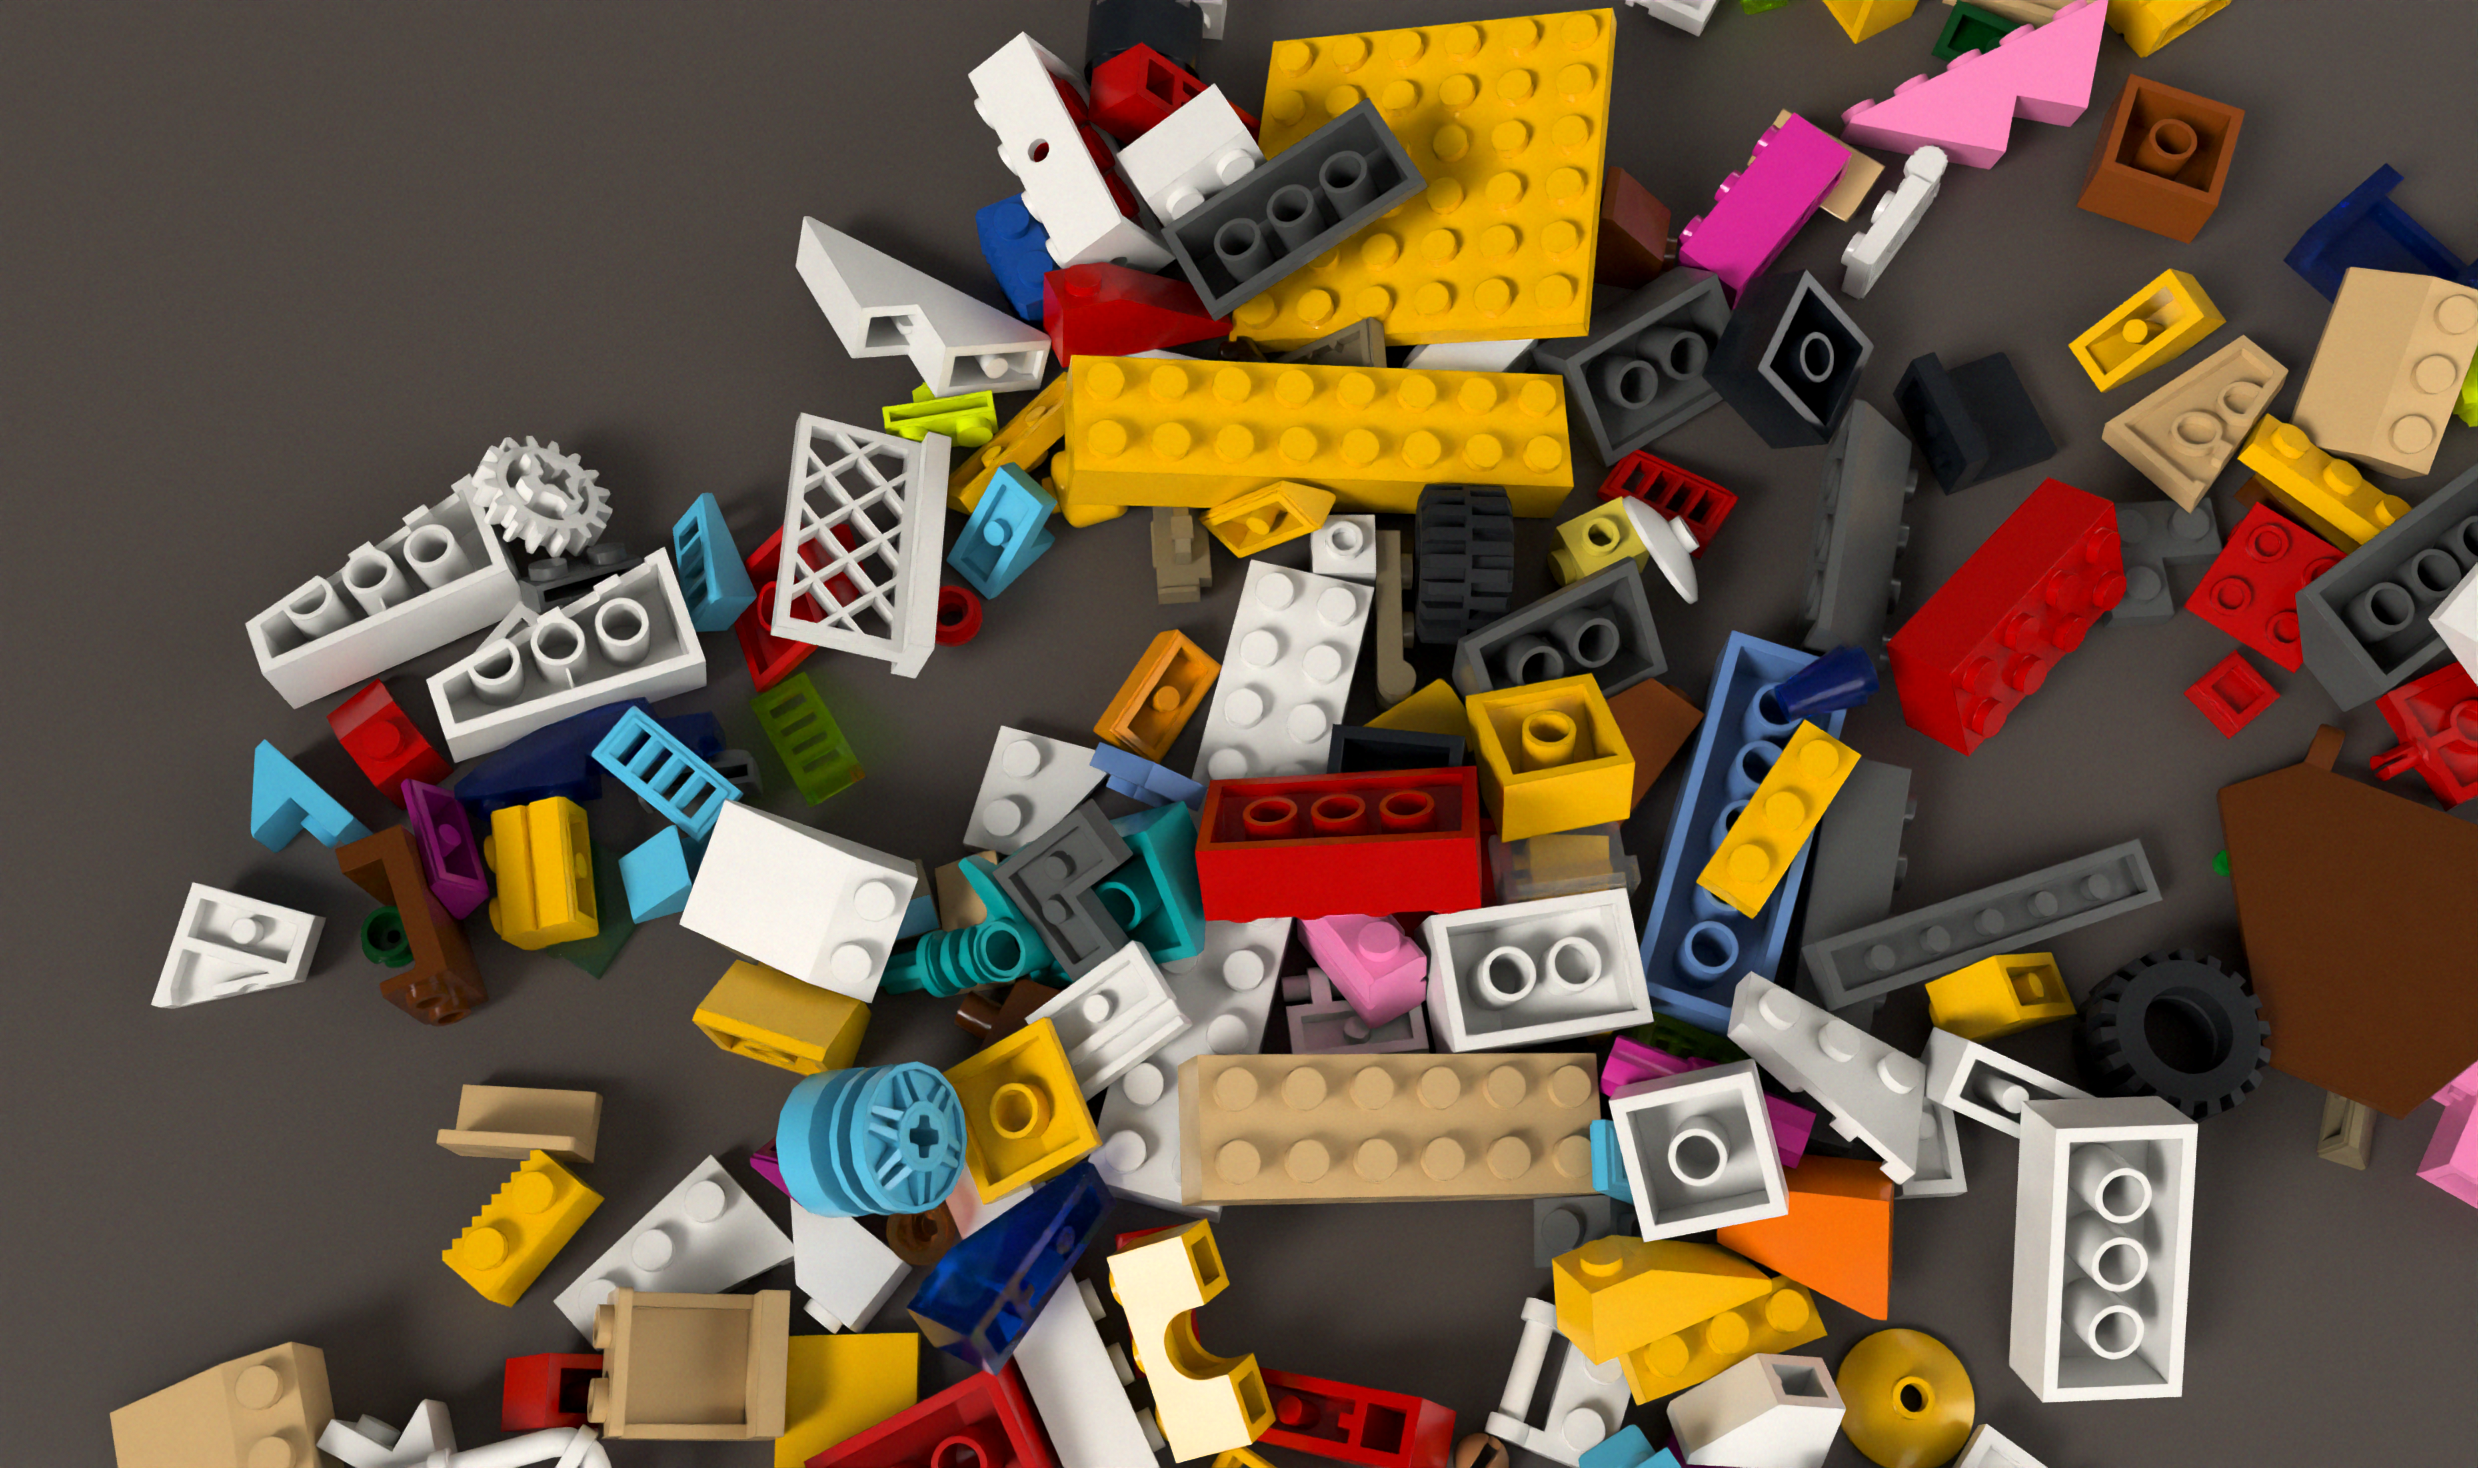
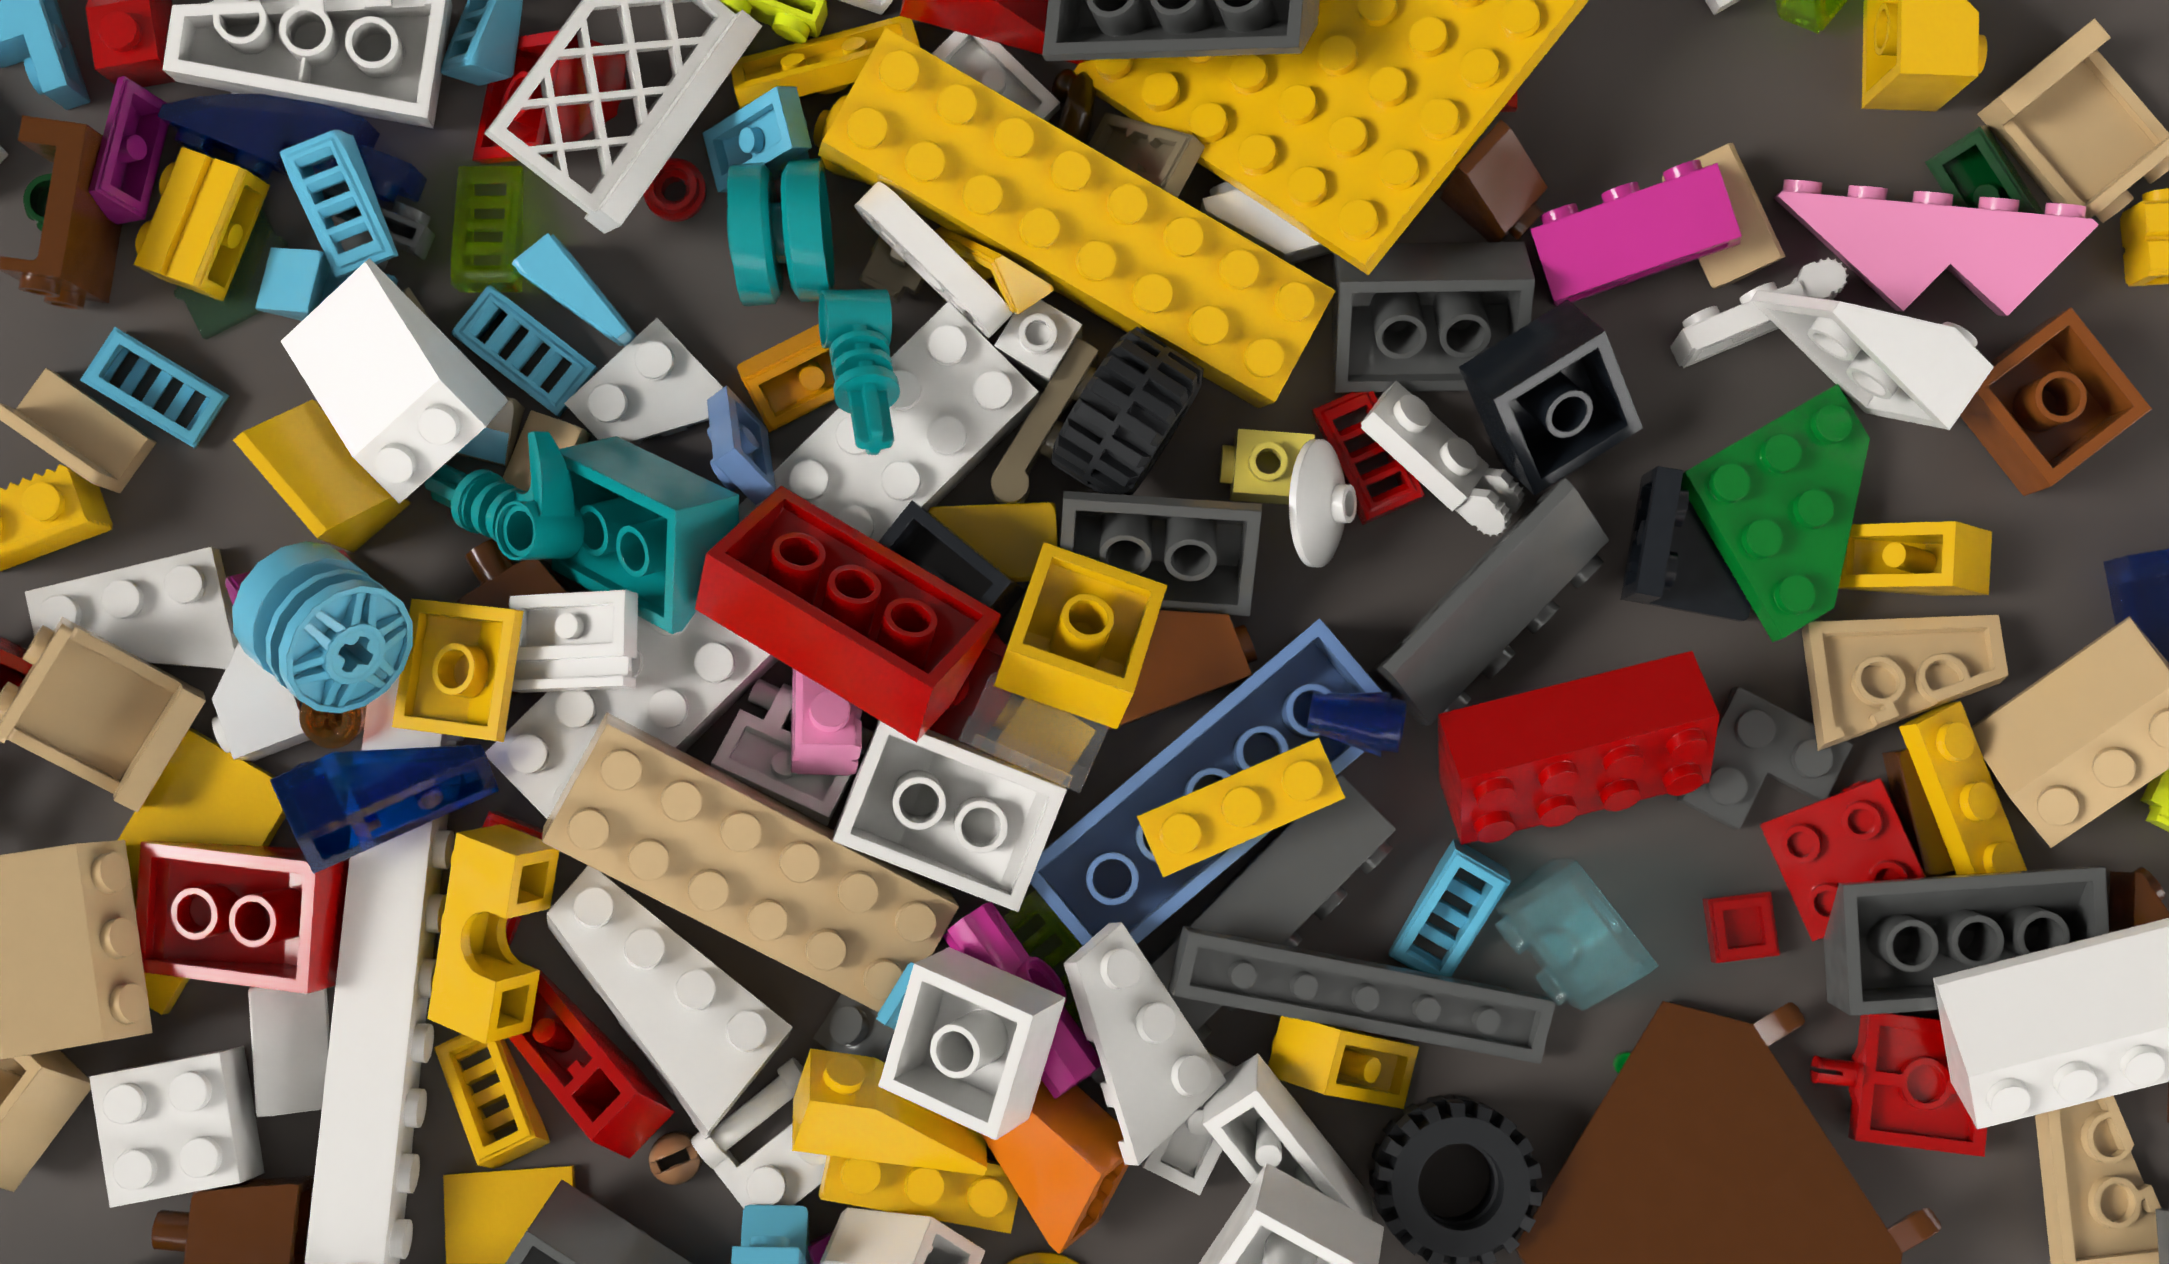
camera: 30 degrees right, 15 degrees up
(553, 1020) = (111, 357): none -> medium azure slope
(904, 798) = (482, 316): none -> medium azure slope
(906, 739) = (561, 277): none -> medium azure slope
(1054, 892) = (589, 505): dark grey plate -> none
(1073, 584) = (774, 232): none -> teal wheel
(1209, 643) = (858, 335): none -> teal piece
(1219, 526) = (933, 259): none -> white beam
(1387, 1305) = (670, 999): none -> white wedge
(1734, 465) = (1443, 461): none -> white hinge
(2016, 183) = (1884, 359): none -> white slope
(2020, 823) = (1470, 924): none -> medium azure slope
(2025, 350) = (1786, 508): none -> green plate
(2115, 767) = (1572, 935): none -> clear light blue slope

